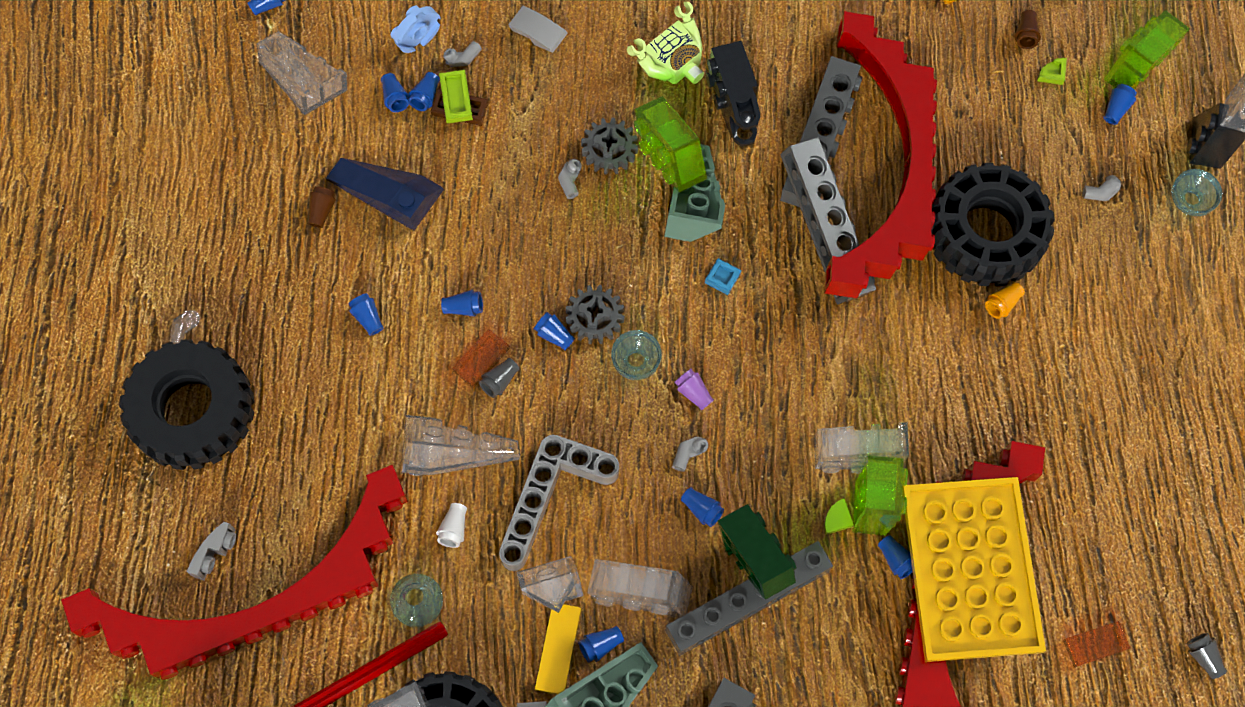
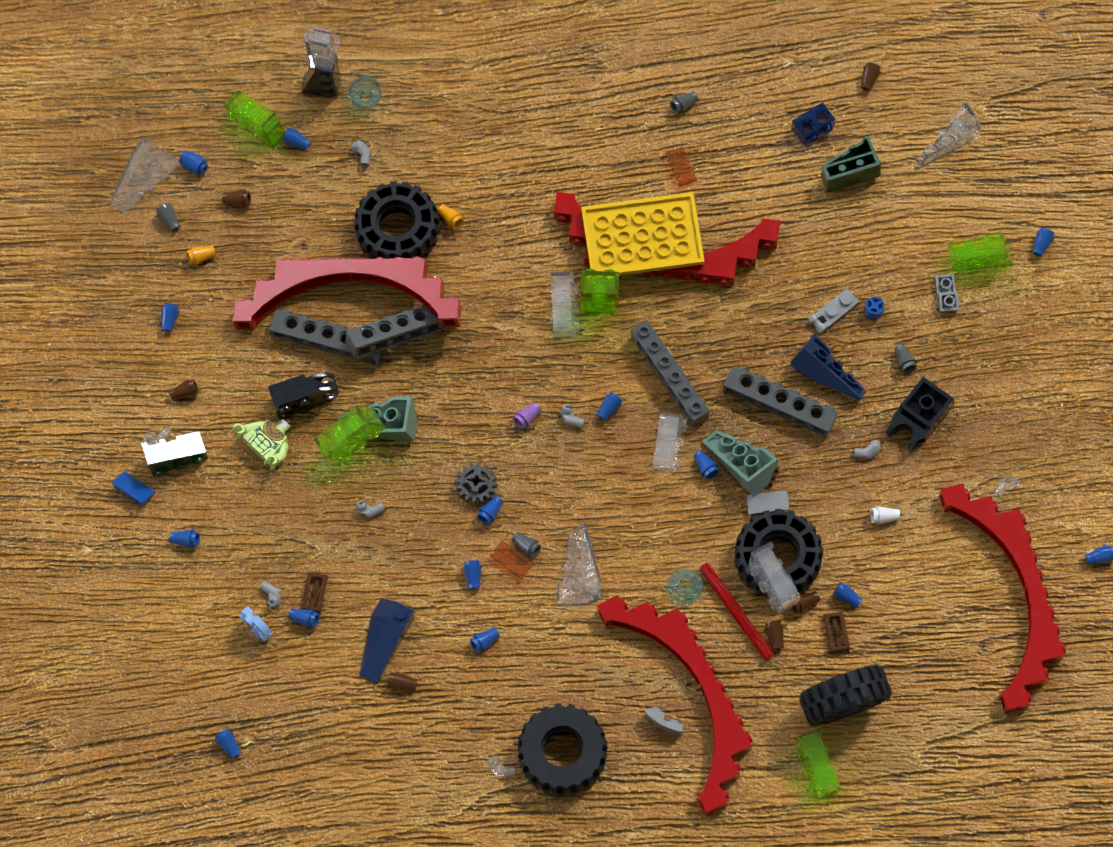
camera: 90 degrees left, 0 degrees up
(299, 73) = (295, 708): clear wedge -> none
(394, 94) = (307, 639): blue cone -> none
(453, 526) = (634, 565): white cone -> none
(455, 96) = (309, 593): lime tile -> none
(538, 28) = (248, 539): light grey slope -> none
(544, 490) = (607, 507): light grey beam -> none
(551, 583) = (668, 496): clear slope -> none
(558, 650) = (710, 492): yellow tile -> none
(599, 138) = (351, 483): dark grey gear -> none
(636, 342) = (506, 444): clear light blue piece -> none
(723, 276) = (441, 401): dark azure tile -> none
(757, 551) = (643, 363): dark green wedge -> none
(838, 518) = (610, 321): lime tile -> none
(896, 557) = (634, 284): blue cone -> none
(1053, 72) = (269, 182): lime tile -> none

